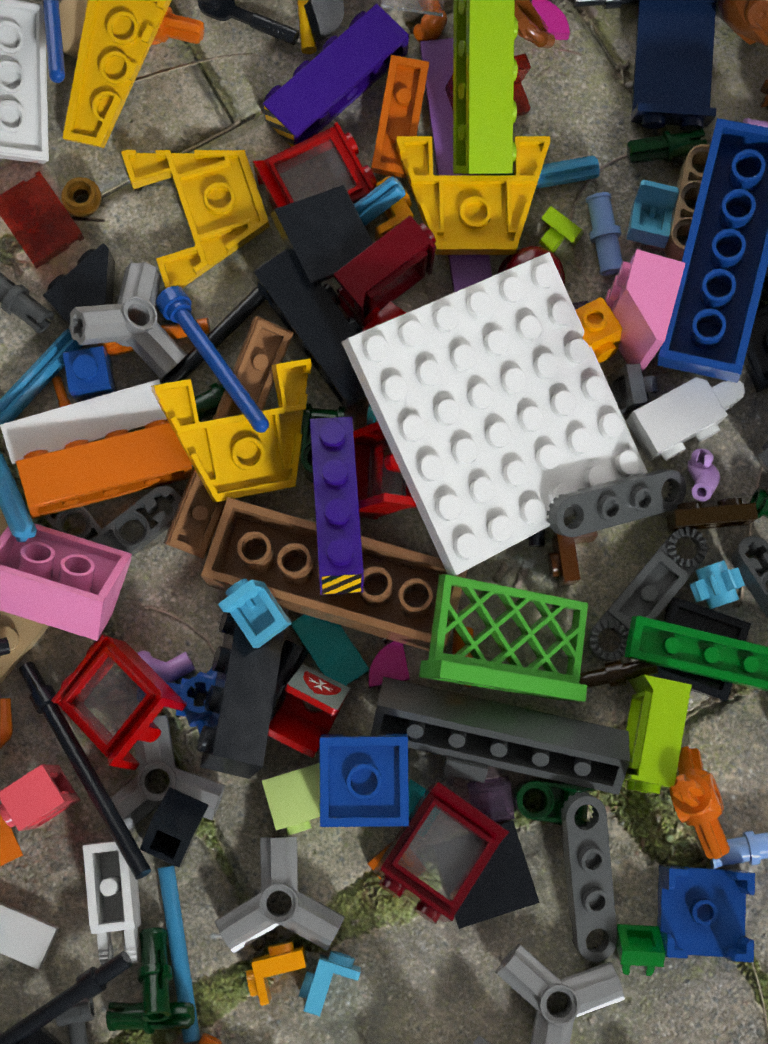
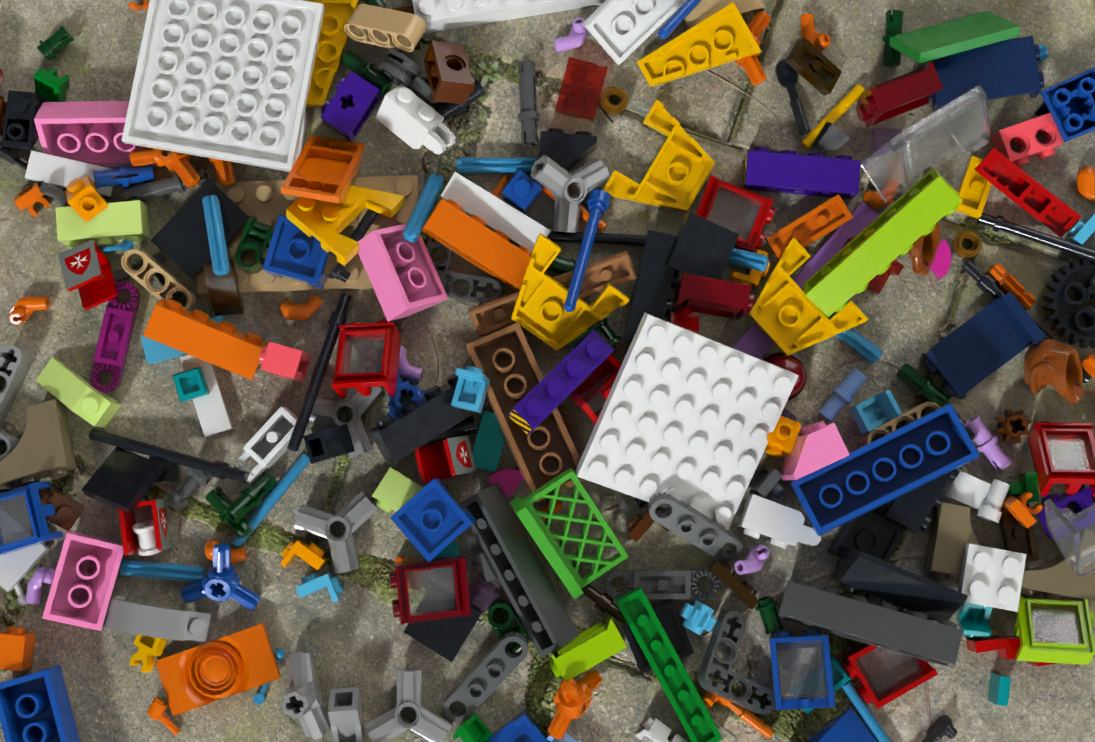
camera: 55 degrees right, 5 degrees up
(560, 229) = (823, 368): lime tile -> none

